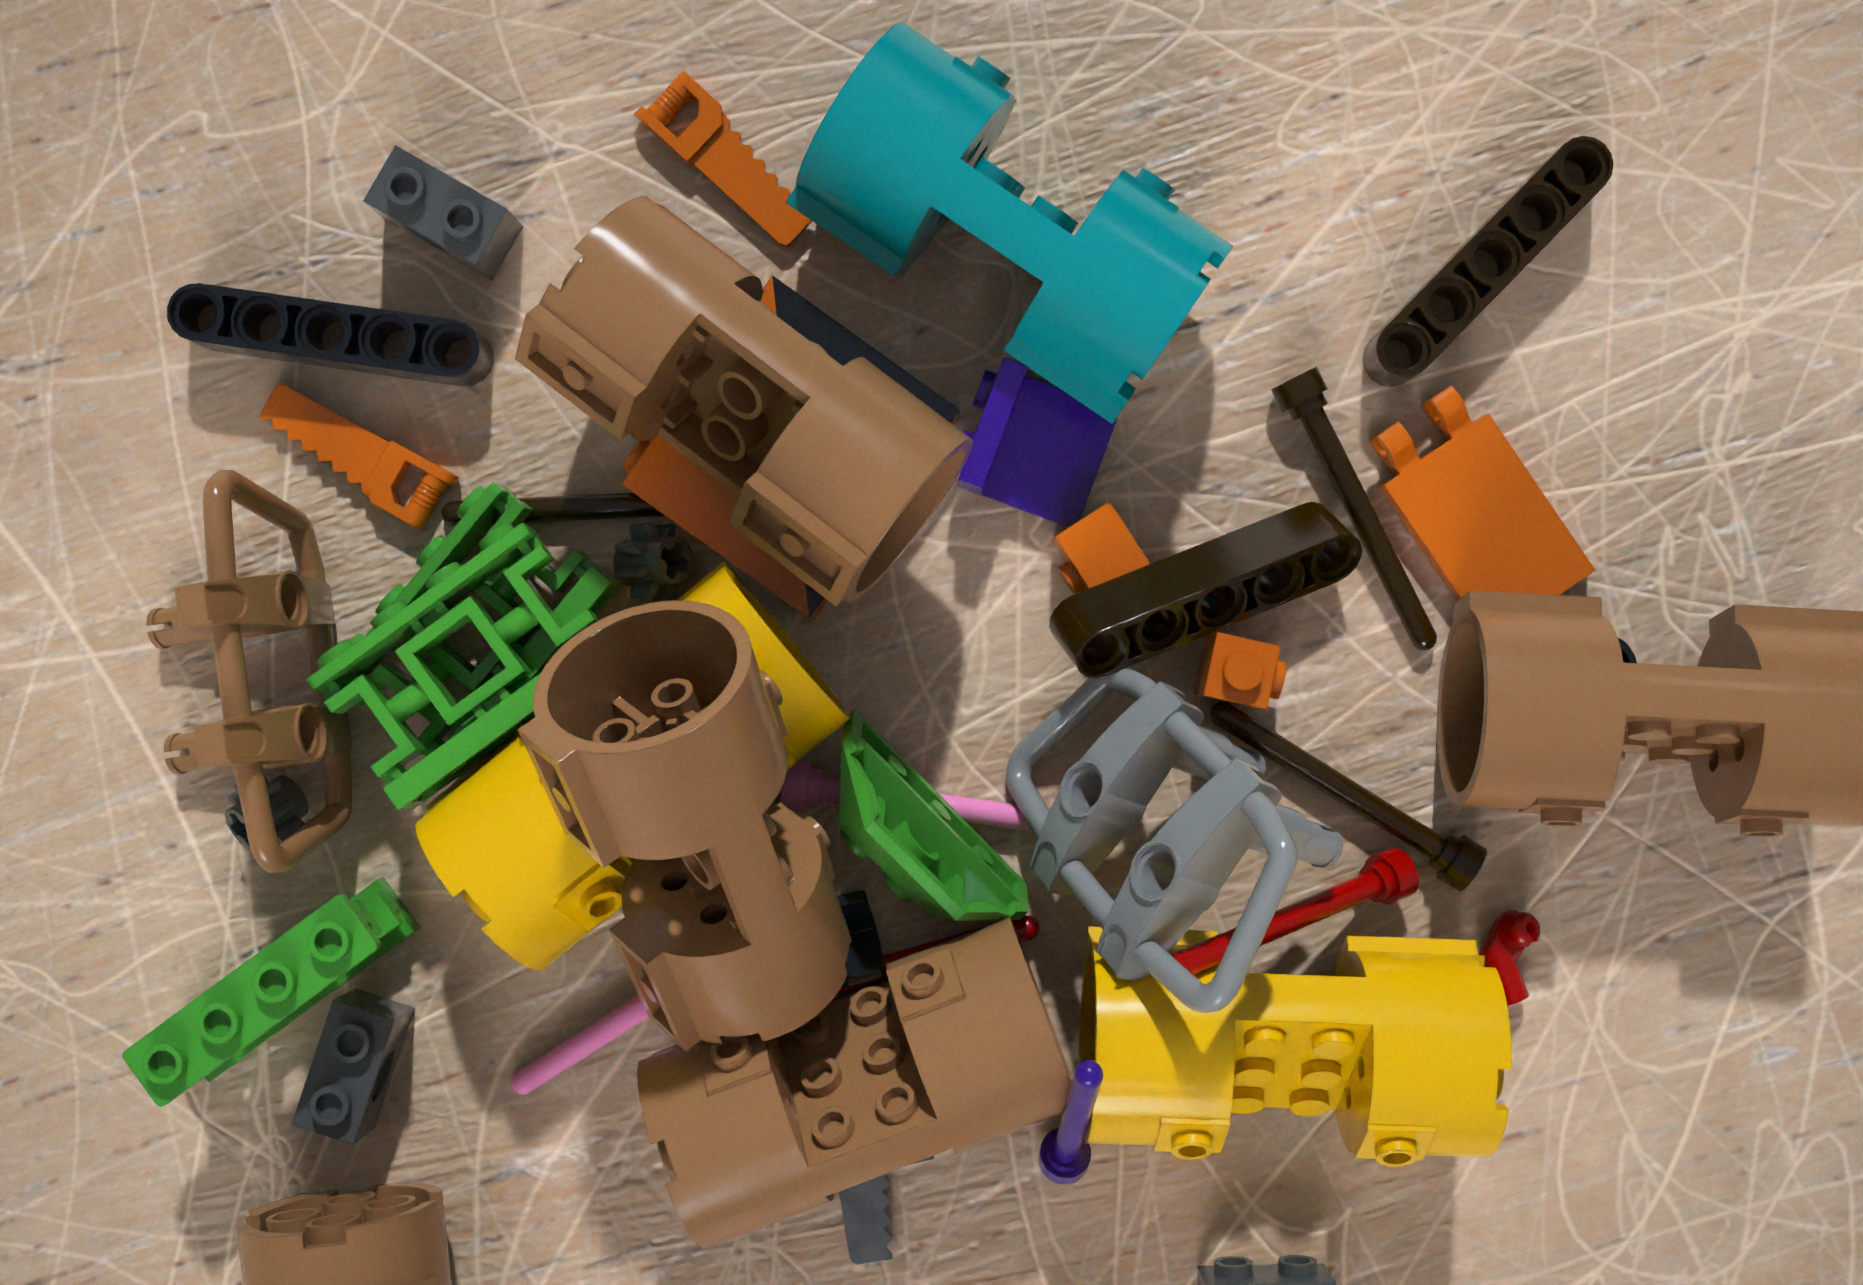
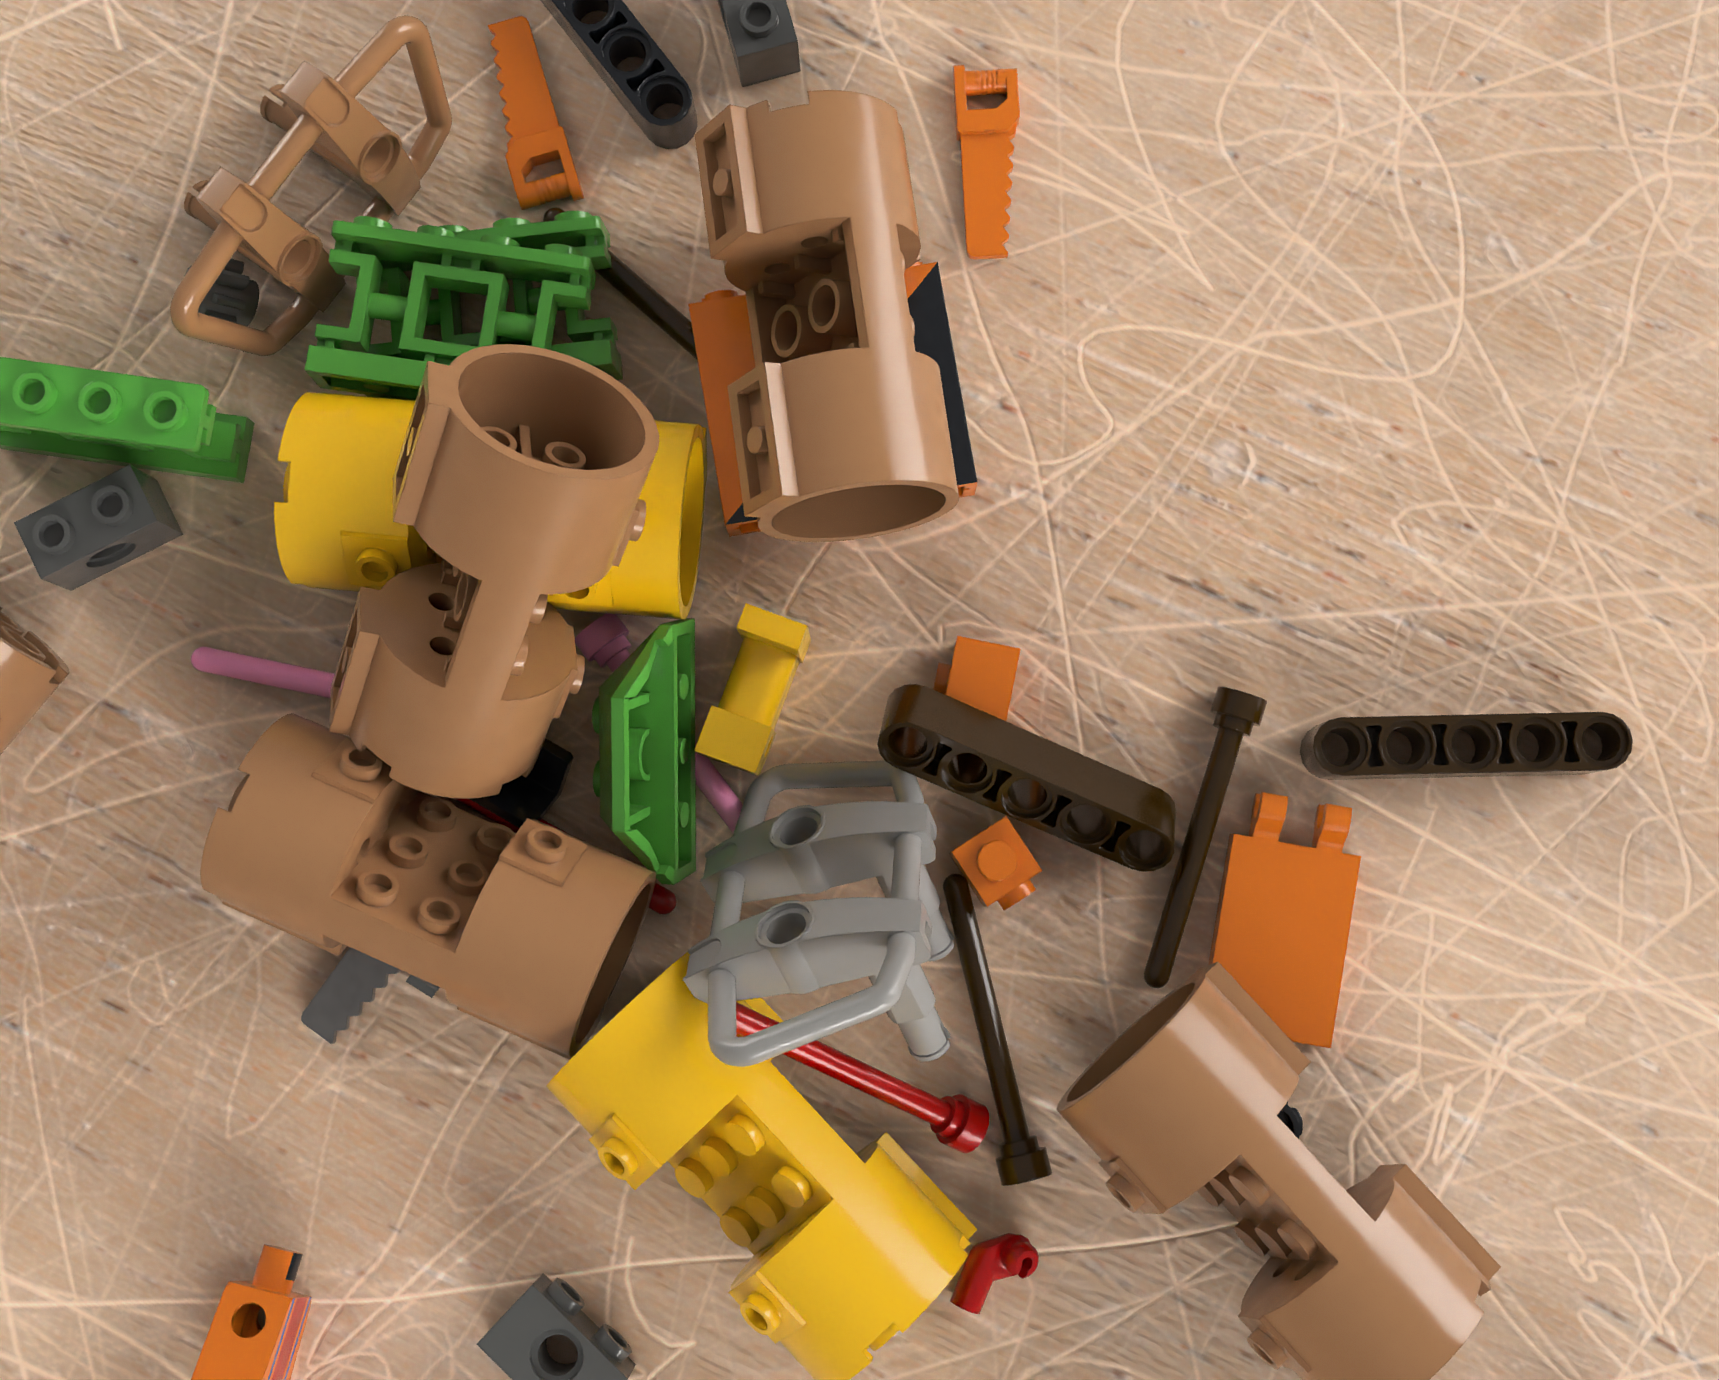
camera: 45 degrees right, 5 degrees down
(652, 561) = (660, 378): dark grey gear -> none
(913, 150) = (1114, 268): teal cylinder -> none
(958, 744) = (745, 720): none -> yellow piece
(1034, 446) = (1006, 559): dark purple bracket -> none
(1063, 1152) = (524, 1089): dark purple piece -> none

